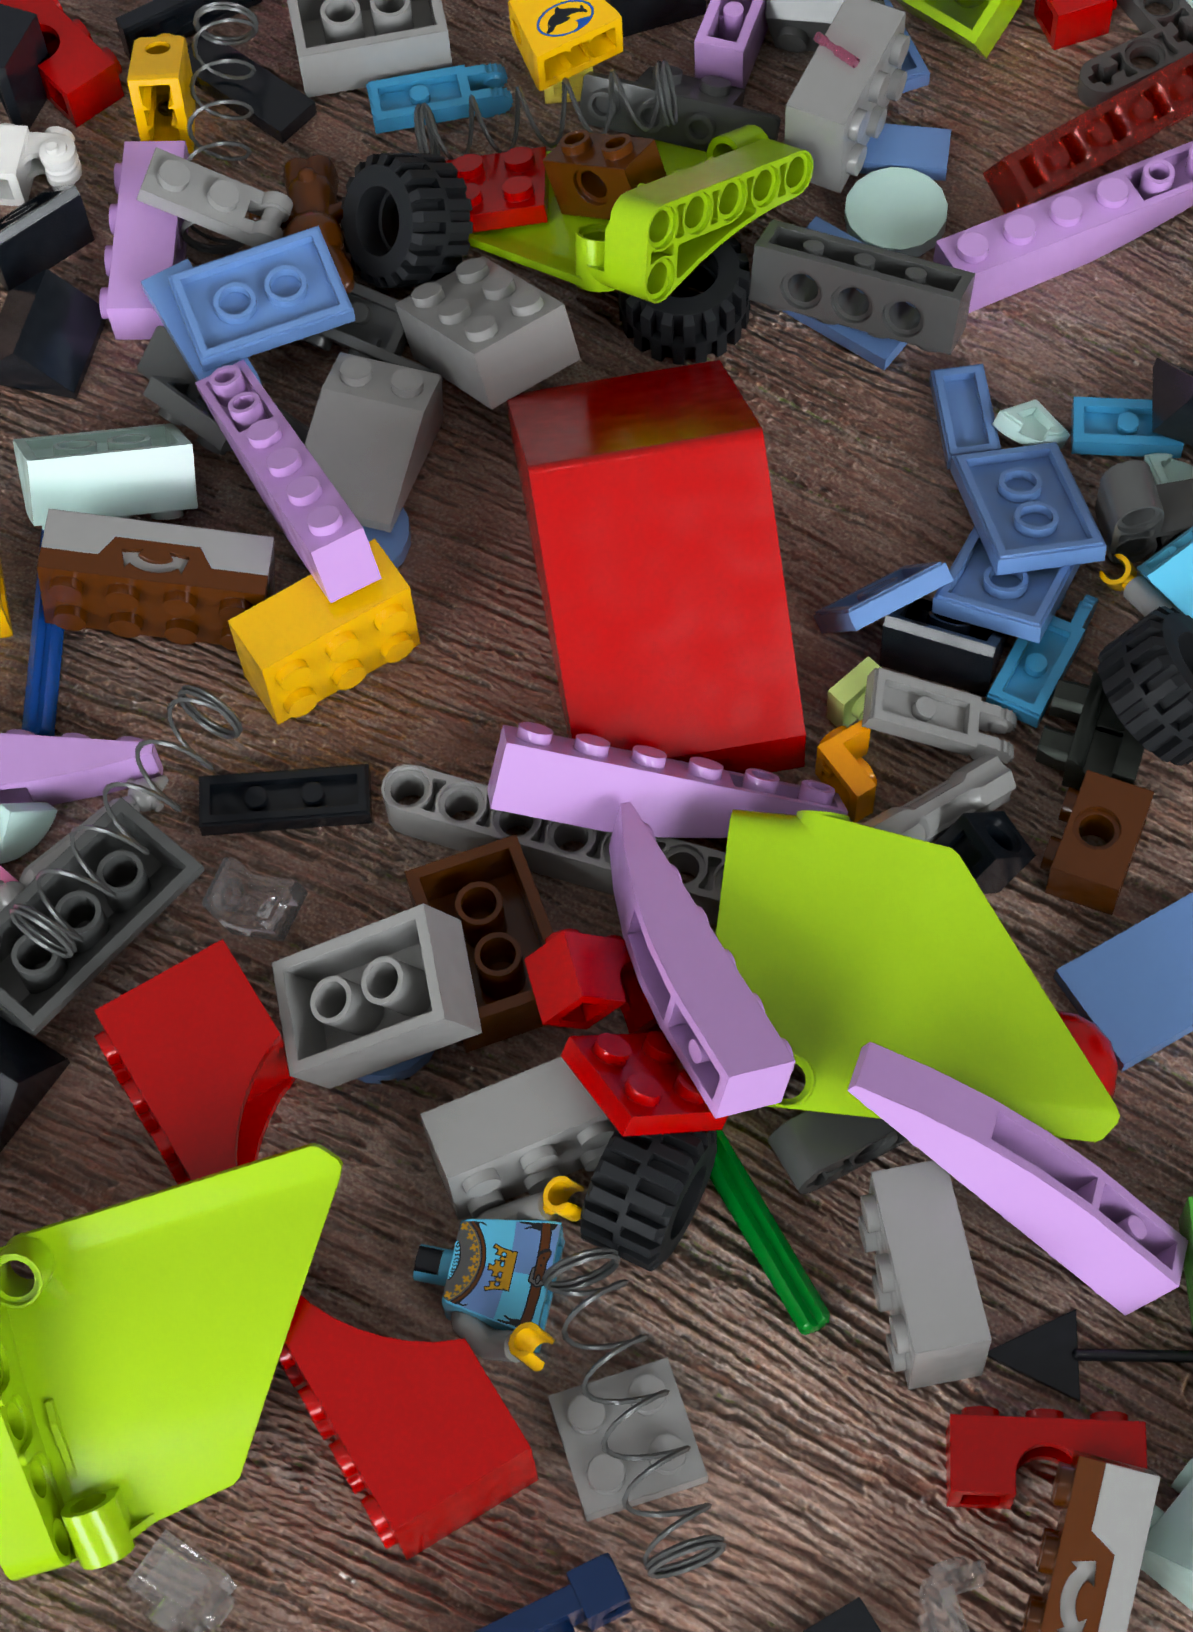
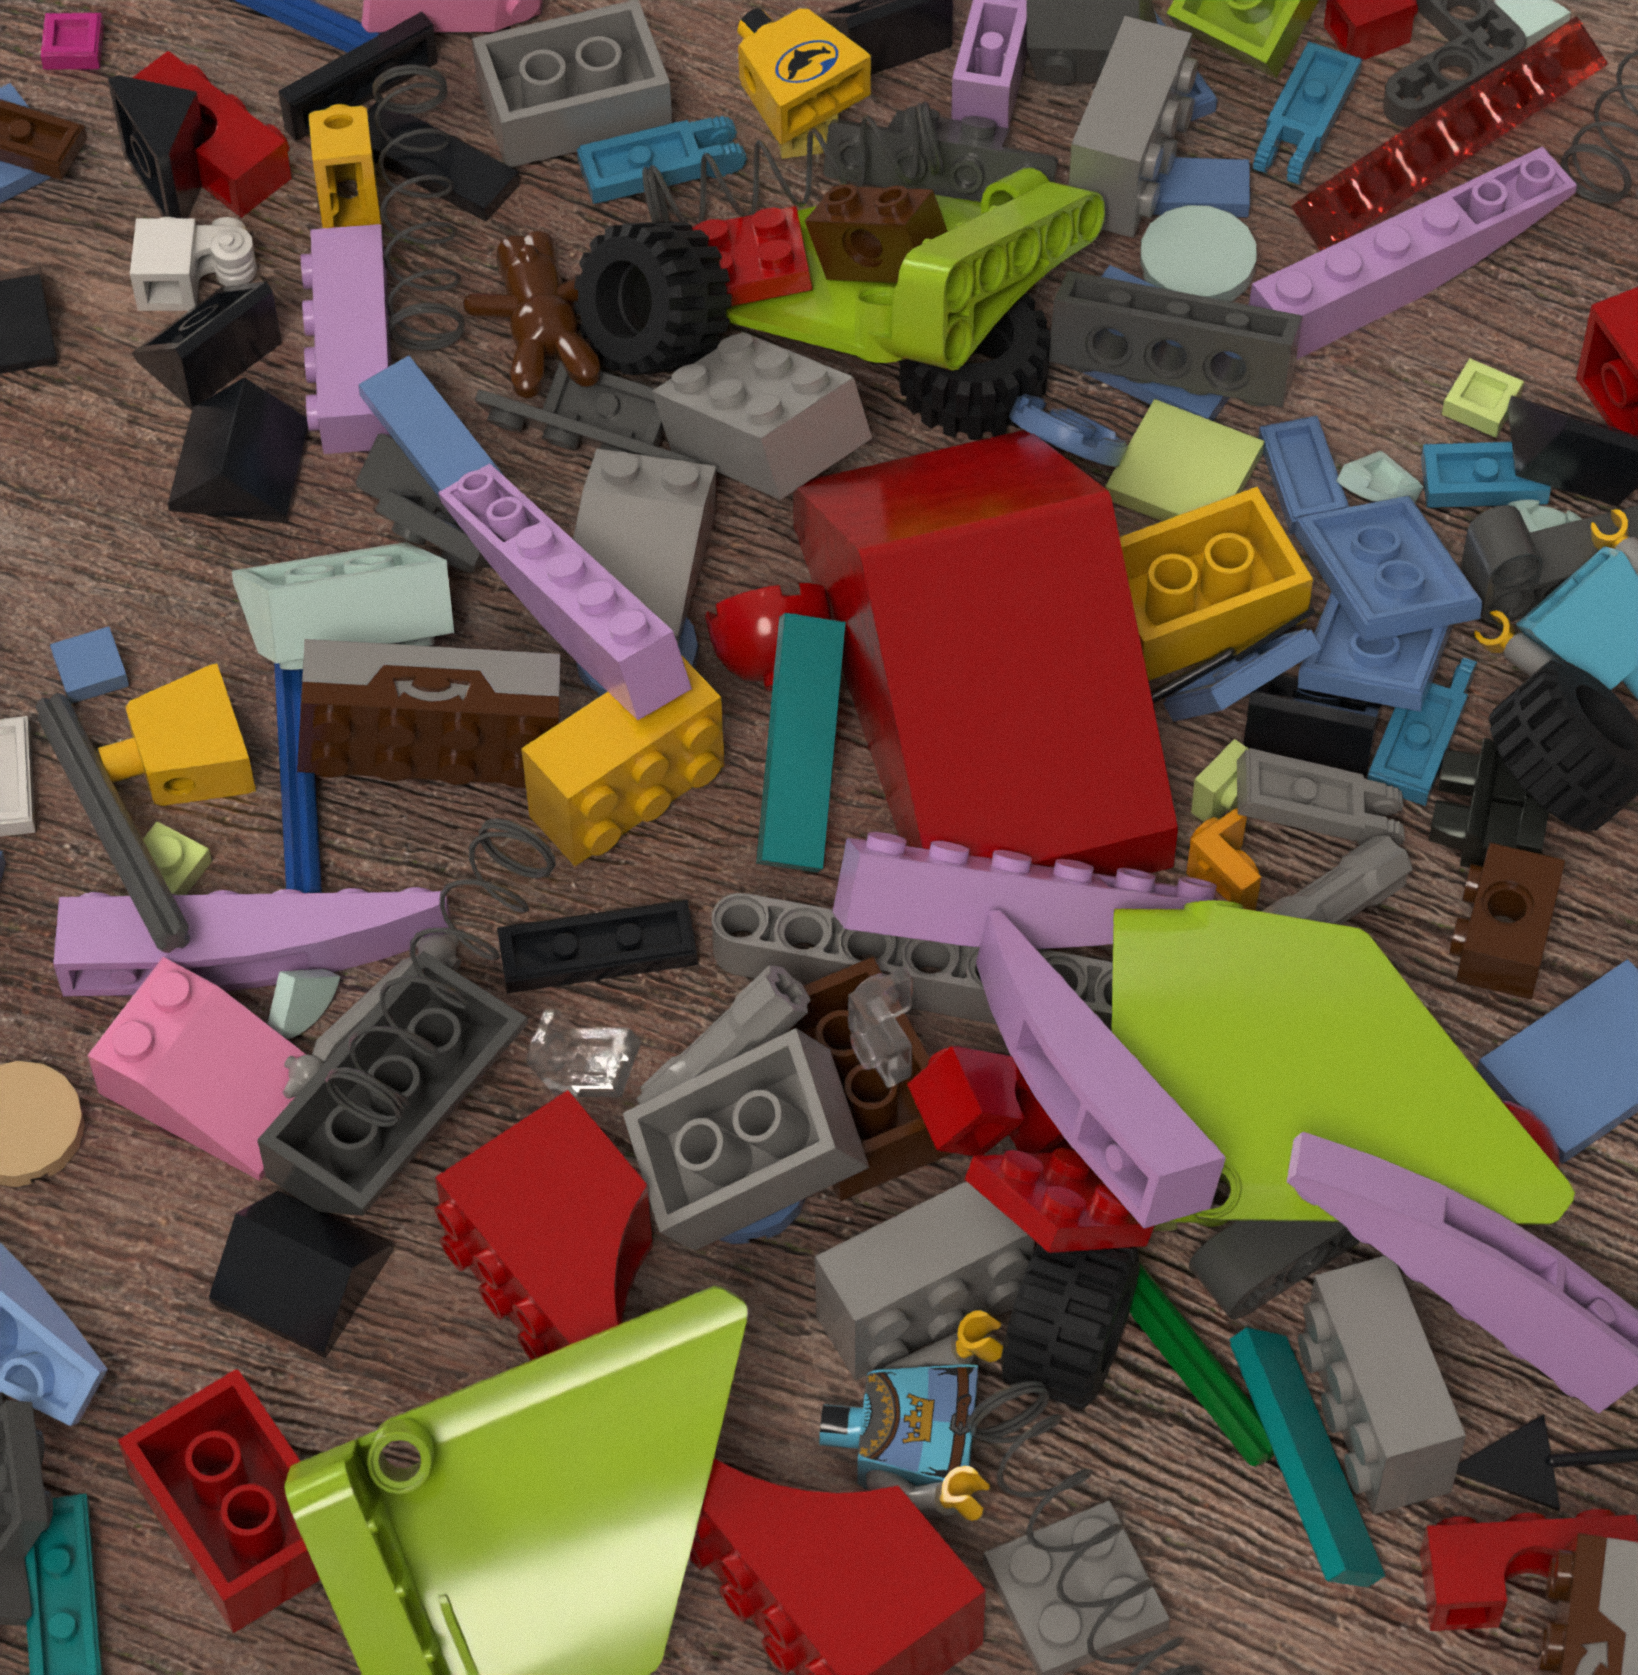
camera: 10 degrees left, 5 degrees down
(213, 199) = (431, 289): light grey plate -> none
(261, 298) = (500, 394): medium blue tile -> none
(401, 885) = (758, 1015): none -> light grey axle
(472, 529) = (748, 623): none -> red cylinder
(482, 630) = (800, 743): none -> teal tile
(505, 913) = (875, 1032): none -> clear bracket
(757, 363) = (1069, 431): none -> medium blue tile
(838, 51) = (1123, 80): clear pink piece -> none
(851, 1335) = (1306, 1458): none -> teal tile
(859, 405) = (1181, 463): none -> yellowish green tile
(859, 511) = (1212, 580): none -> yellow brick
(876, 576) = (1225, 656): none -> black piece
(989, 848) = (1397, 930): black brick -> none
(1009, 86) = (1308, 108): none -> dark azure hinge
(1131, 357) = (1481, 397): none -> yellowish green plate

